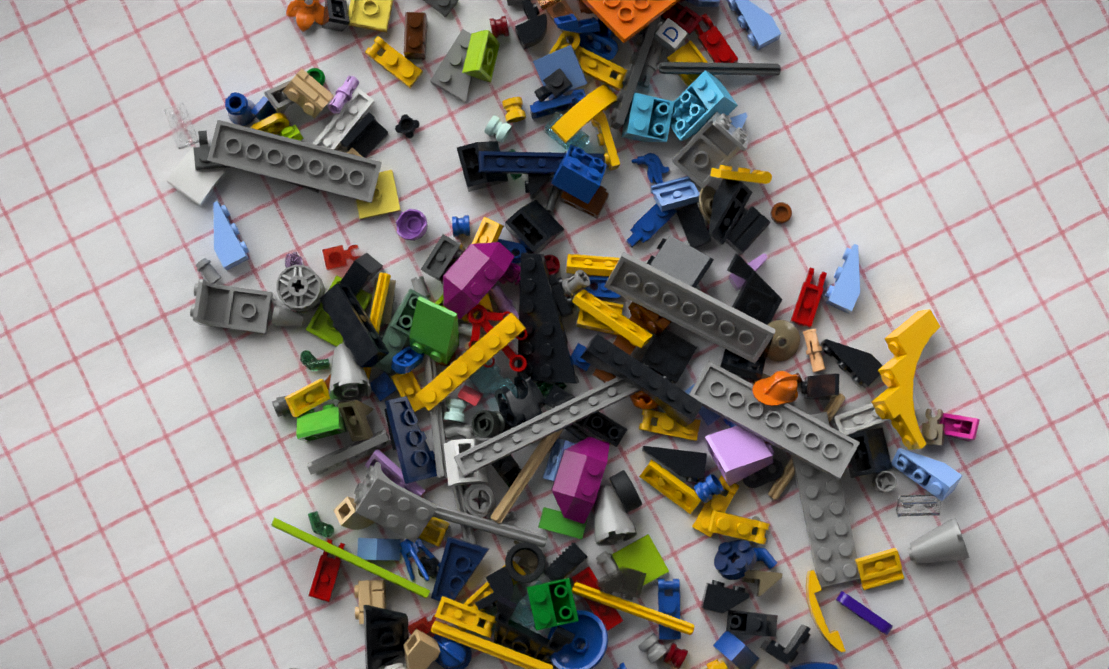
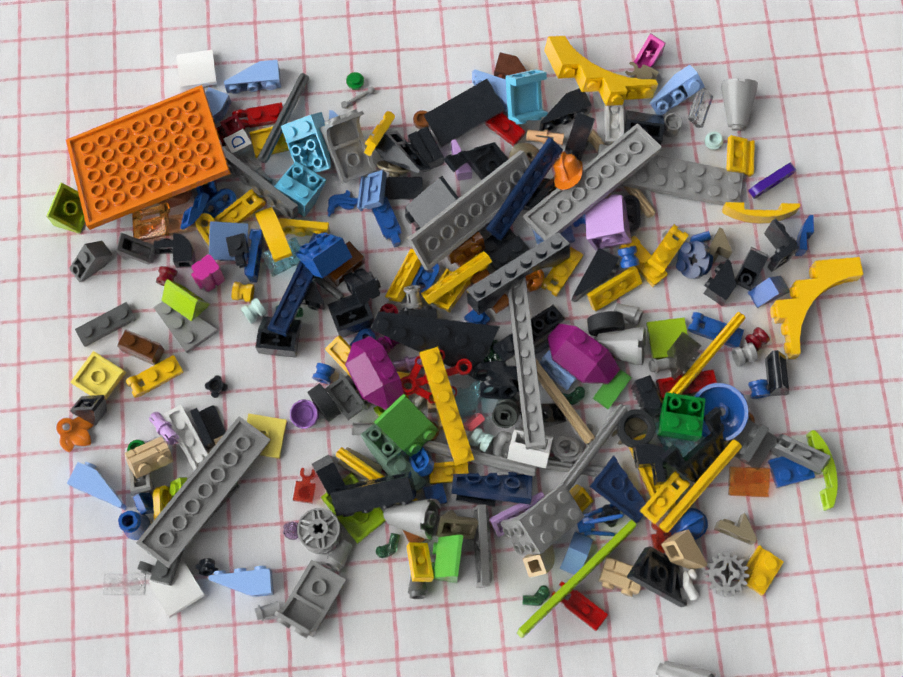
camera: 70 degrees left, 10 degrees down
(226, 195) = (206, 566): none -> black plate
(264, 52) = (93, 483): none -> light blue slope
(428, 238) = (324, 402): none -> black tyre
(515, 66) = (207, 273): none -> dark pink brick
(538, 488) = (575, 396): none -> clear green arm
(566, 226) = (362, 285): none -> black brick
(650, 511) = (630, 313): none -> light grey cone
(738, 351) = (524, 189): none -> dark blue tile
(765, 125) = (344, 104): none -> light grey hinge
(795, 124) = (355, 80): none -> green plate
(803, 254) = (464, 112): none -> black tile
(846, 311) = (525, 96): none -> medium azure panel
(876, 283) = (508, 65): none -> copper slope
(886, 533) = (713, 140): none -> light aqua plate

